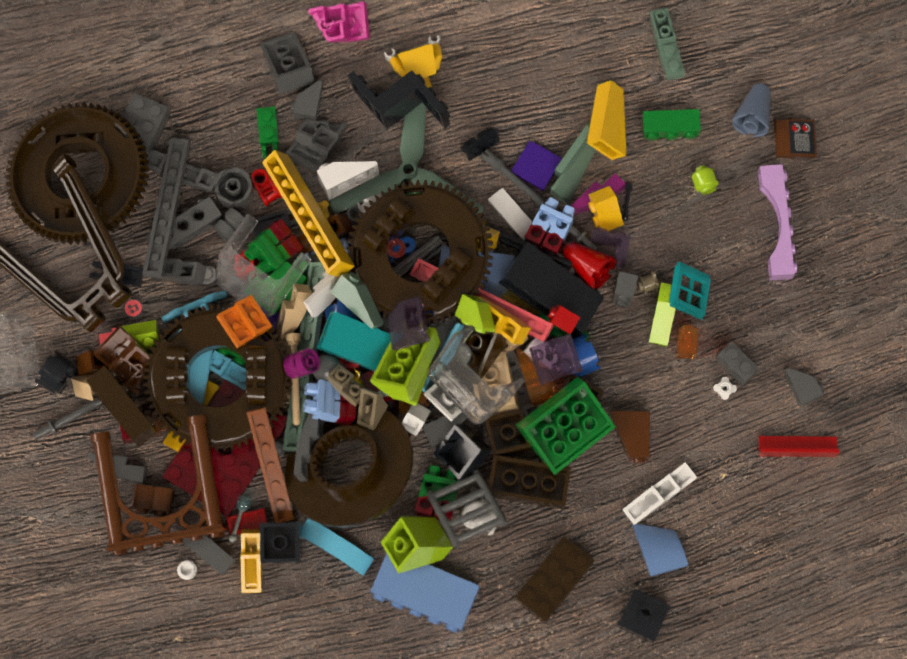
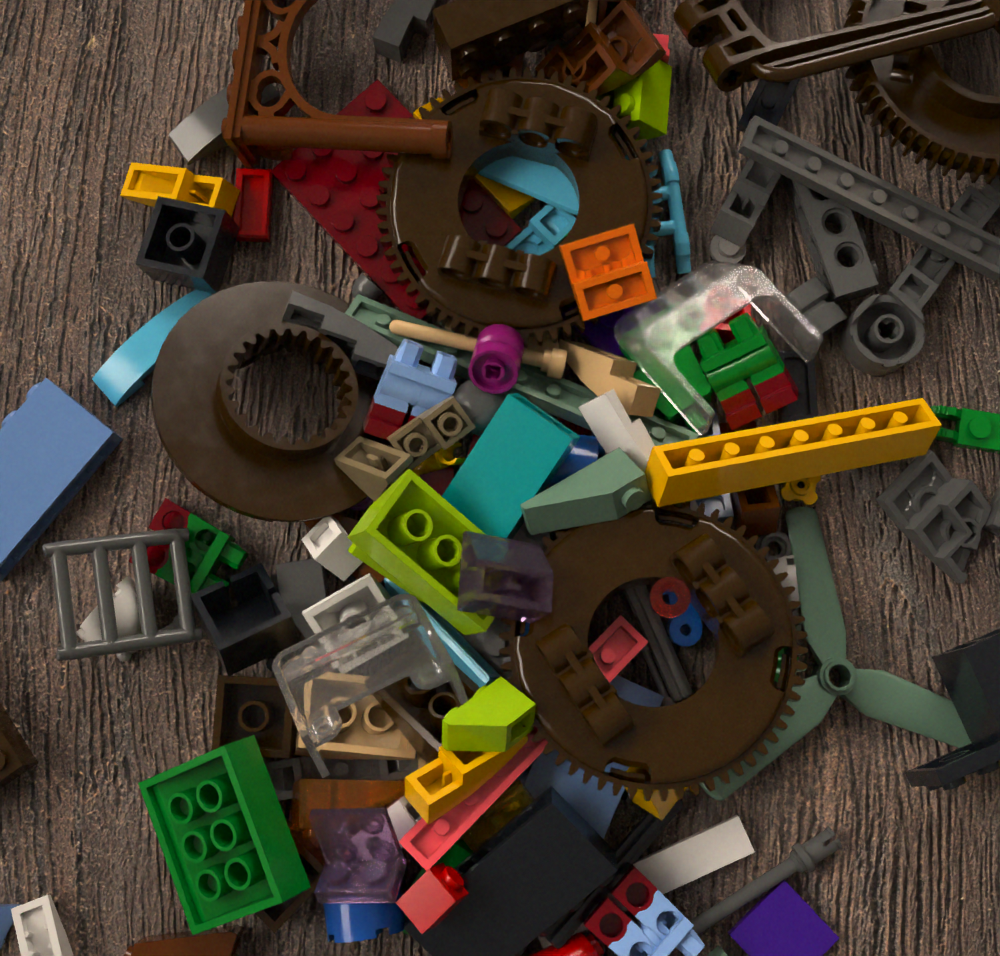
camera: 105 degrees right, 5 degrees up
(133, 308) = (700, 106): tile -> none
(152, 499) = (340, 52): reddish brown brick -> none
(187, 570) = (201, 82): white plate -> none
(243, 504) = (283, 202): hinge -> none
(267, 189) = (868, 391): red piece -> none
(270, 465) = (335, 259): dark orange tile -> none
(344, 176) = (854, 541): white slope -> none
(416, 543) = (99, 480): lime slope -> none
(486, 140) = (862, 851): black hinge -> none
(528, 482) = (150, 727): dark brown brick -> none

